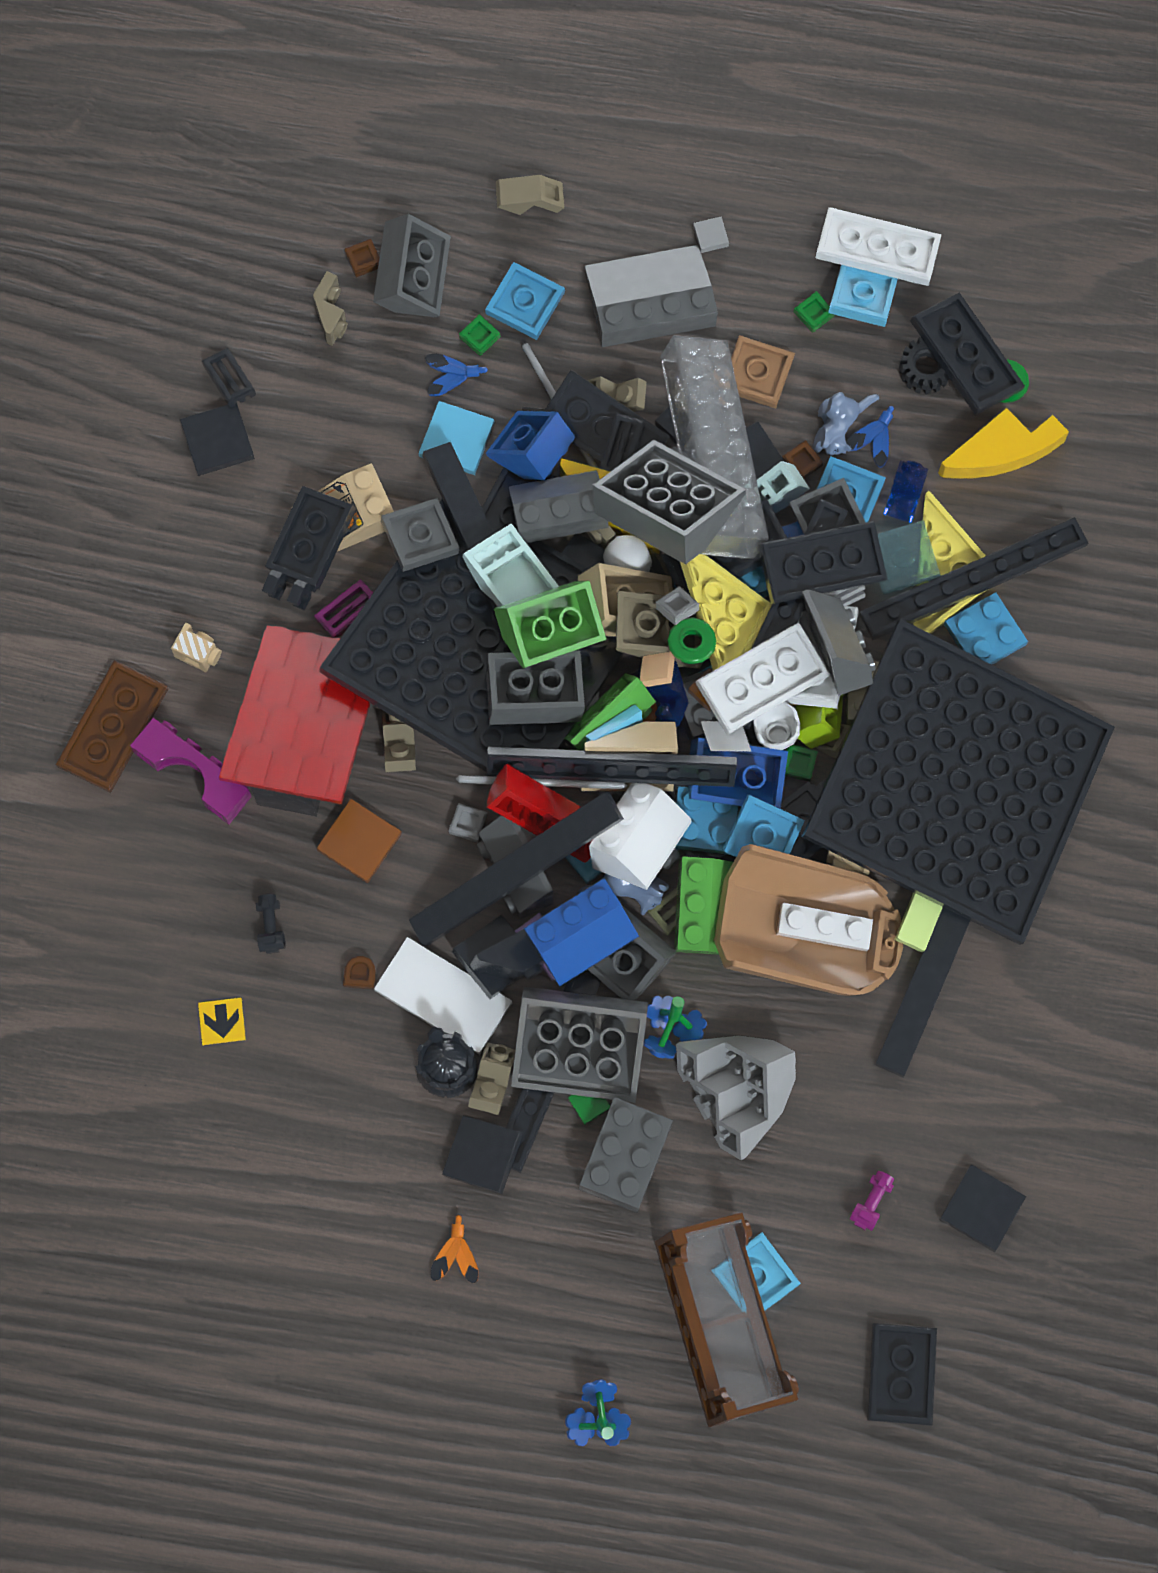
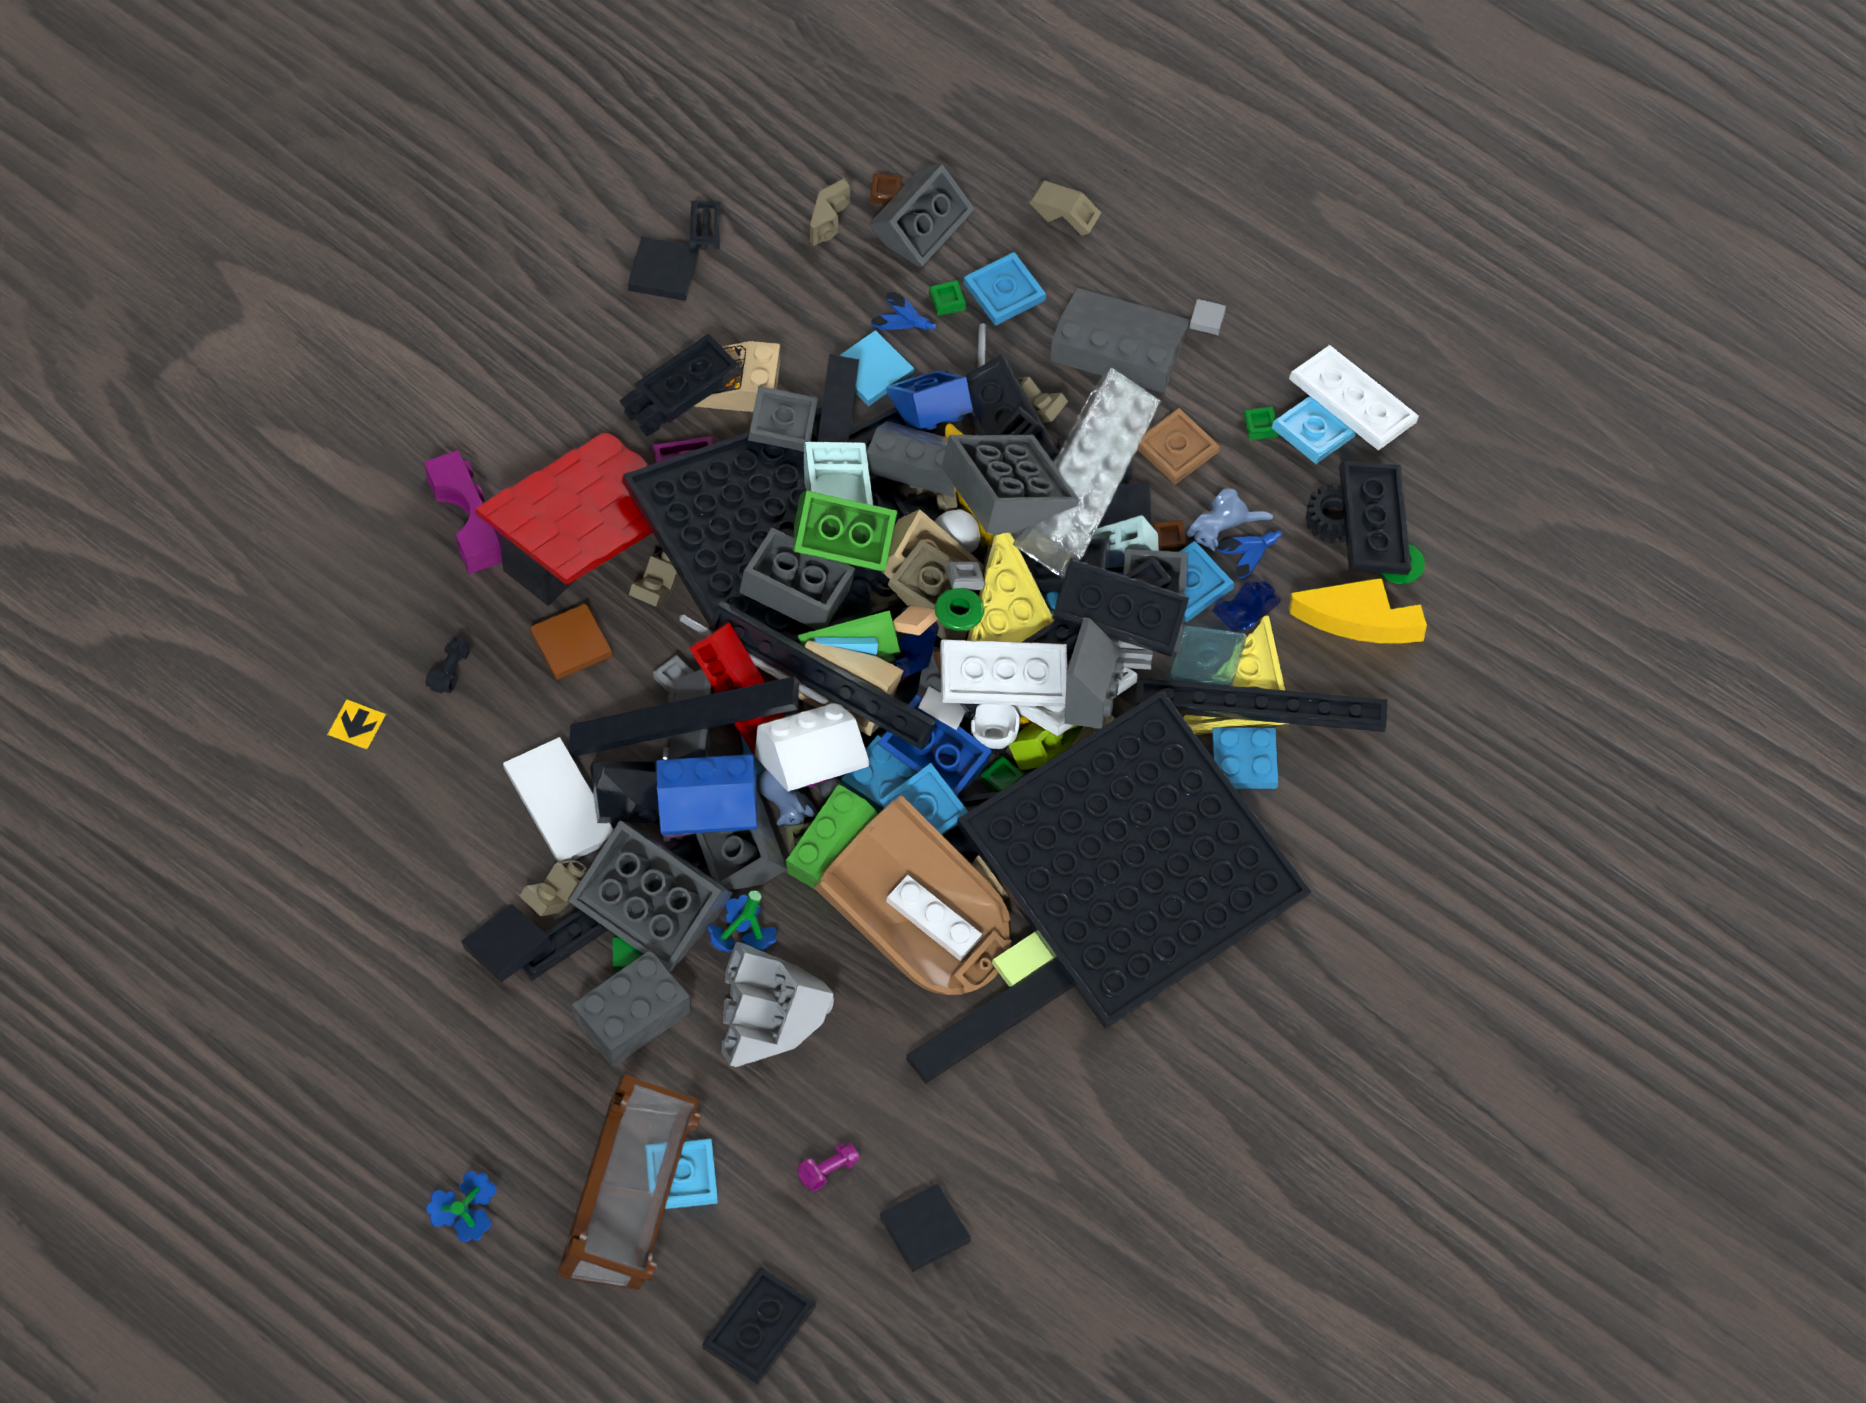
camera: 30 degrees right, 15 degrees down
(110, 725) = (399, 455): reddish brown tile -> none
(196, 649) = (532, 419): tan brick -> none
(360, 973) = (499, 746): reddish brown tile -> none
(446, 1064) = (523, 851): black hair -> none
(456, 1249) = (431, 1008): orange piece -> none

